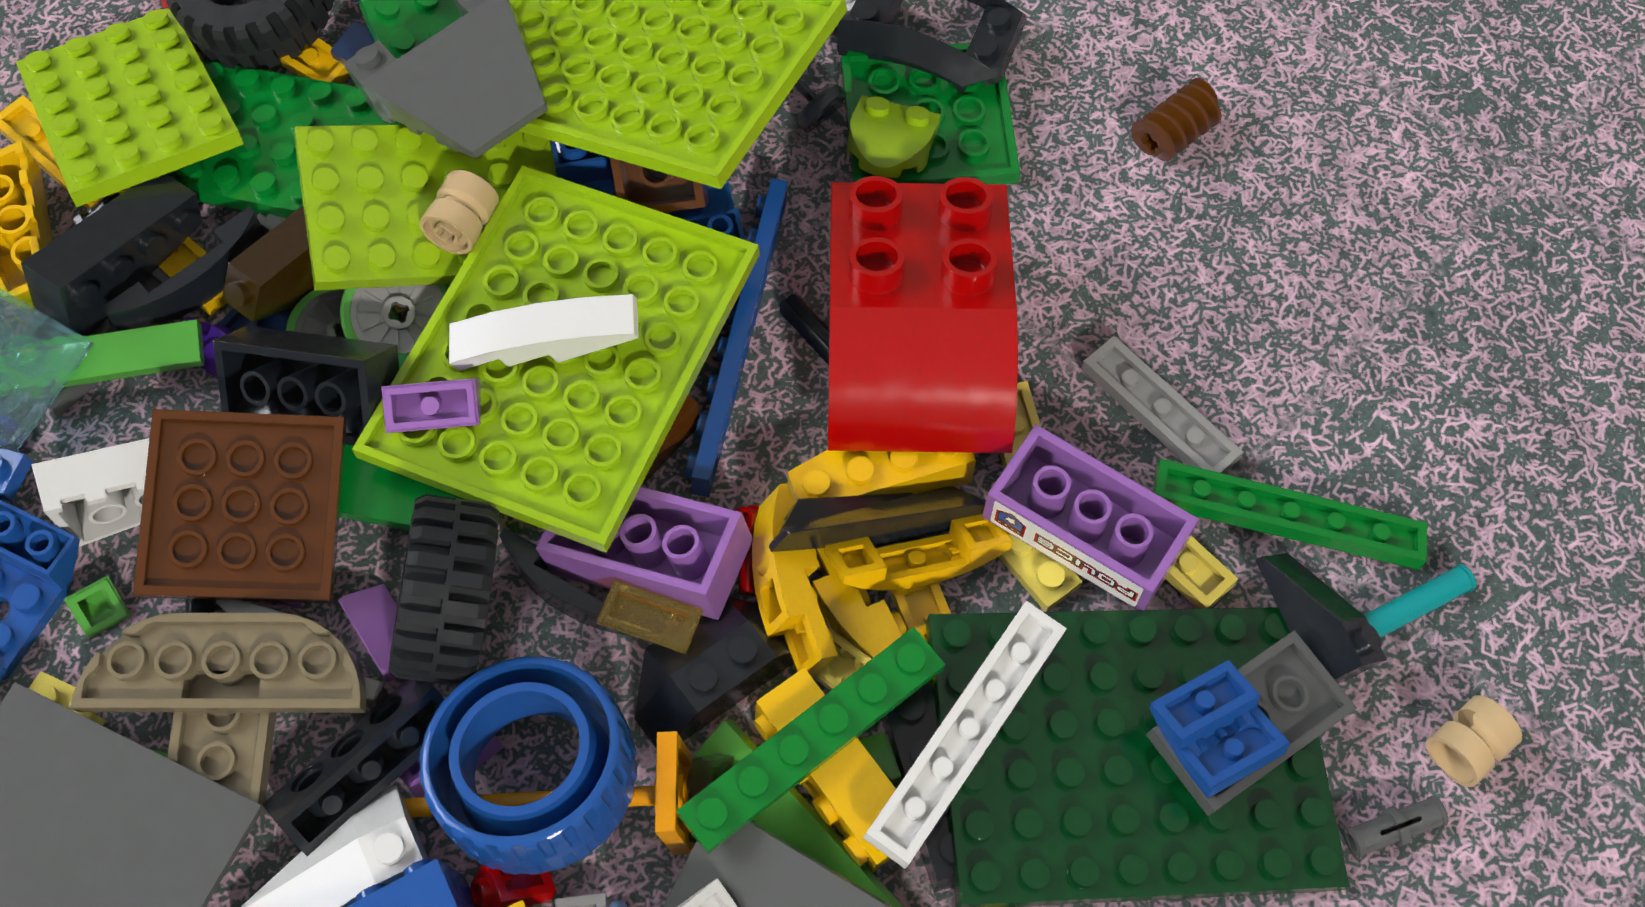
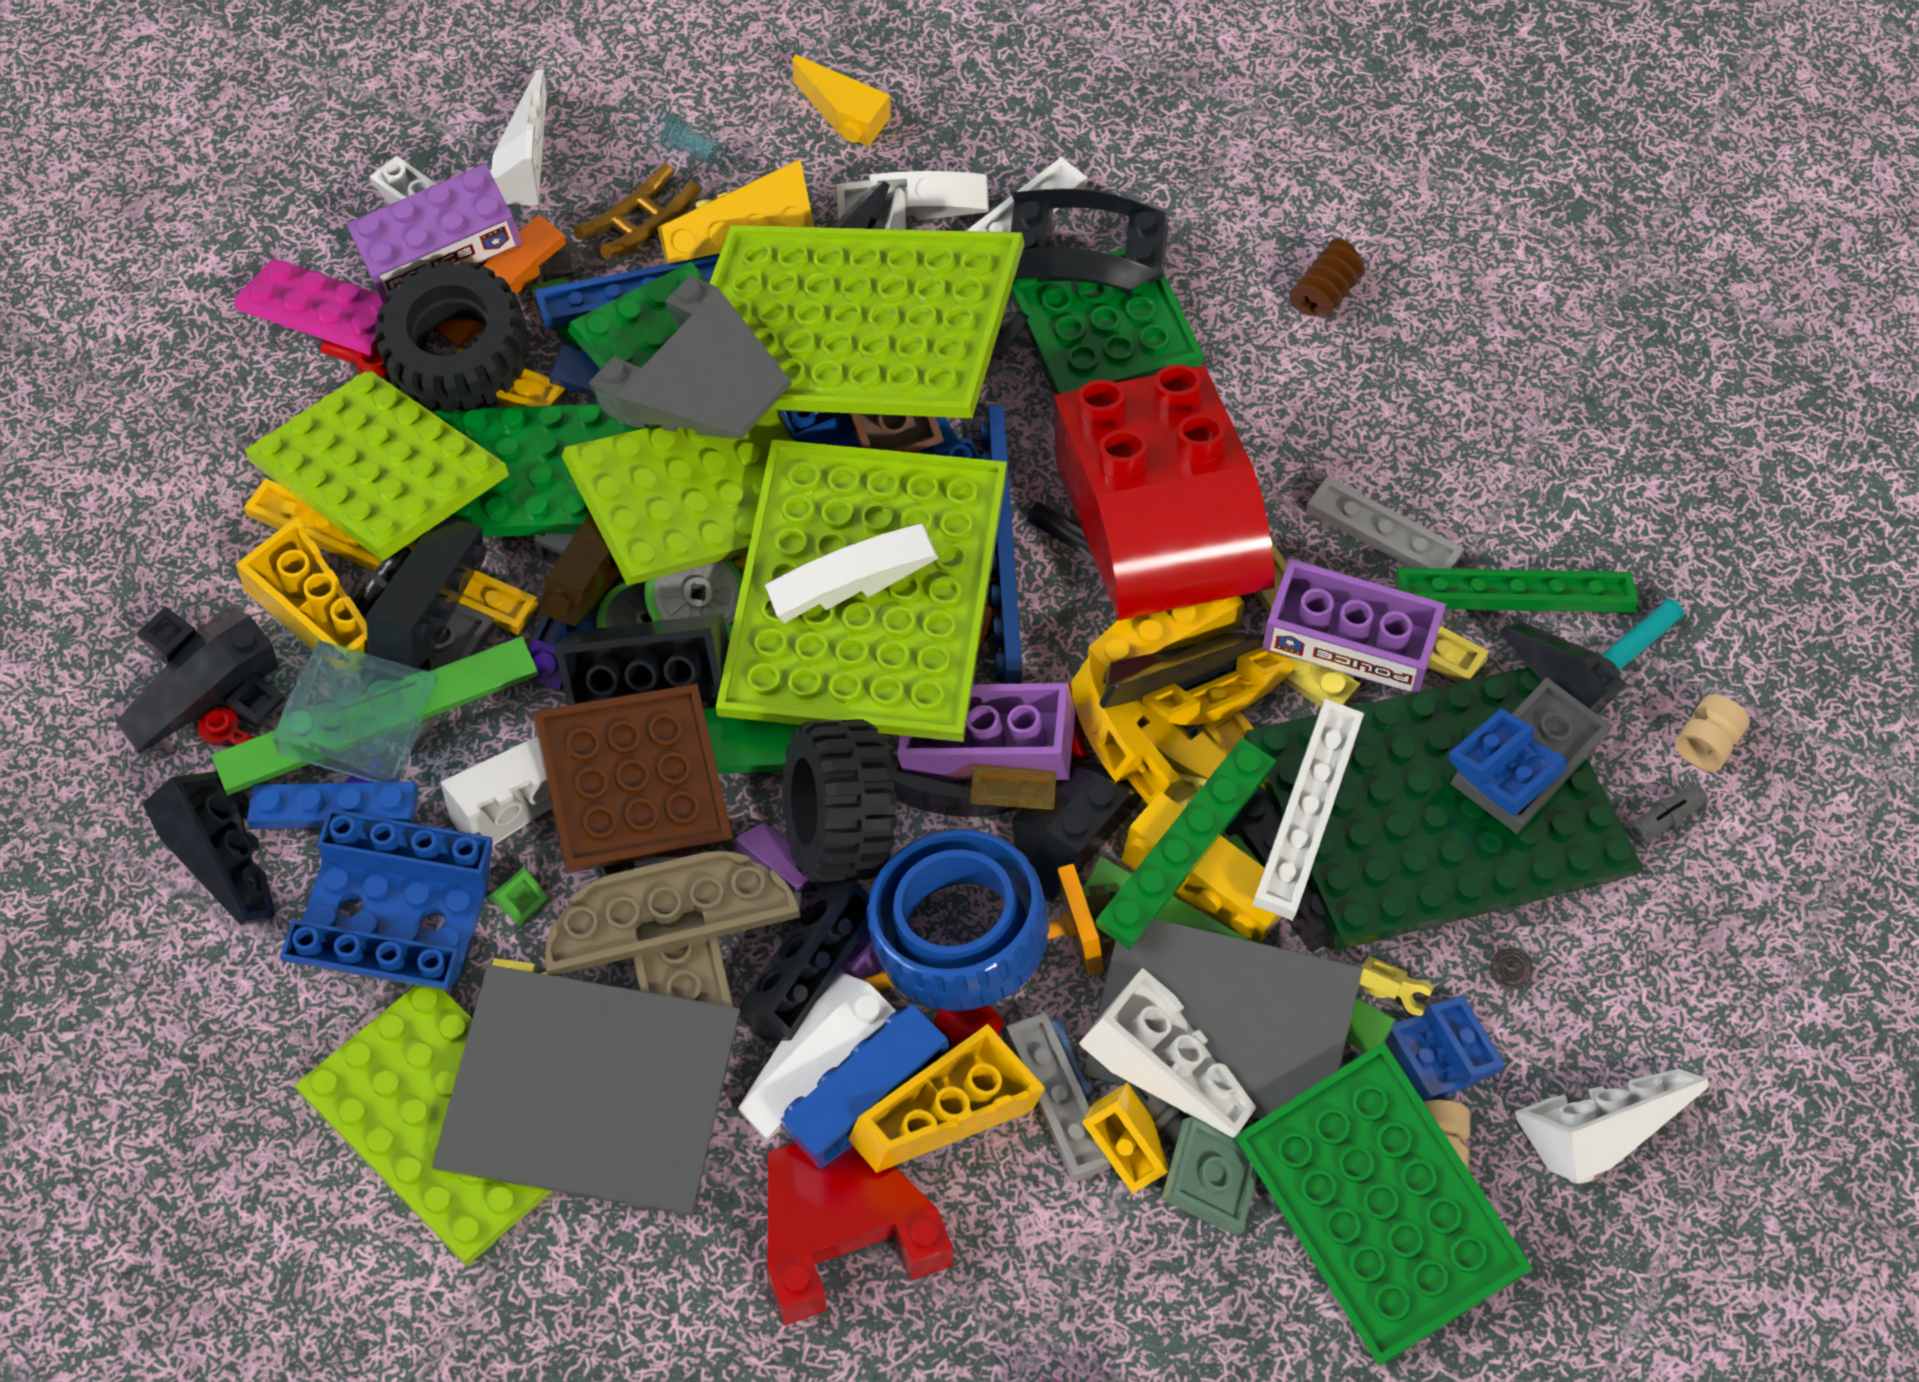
camera: 15 degrees left, 5 degrees down
(190, 286) = (472, 636): black slope -> none
(432, 405) = (774, 655): medium lavender slope -> none
(459, 212) = (735, 490): tan wheel -> none
(891, 136) = (1081, 346): lime slope -> none

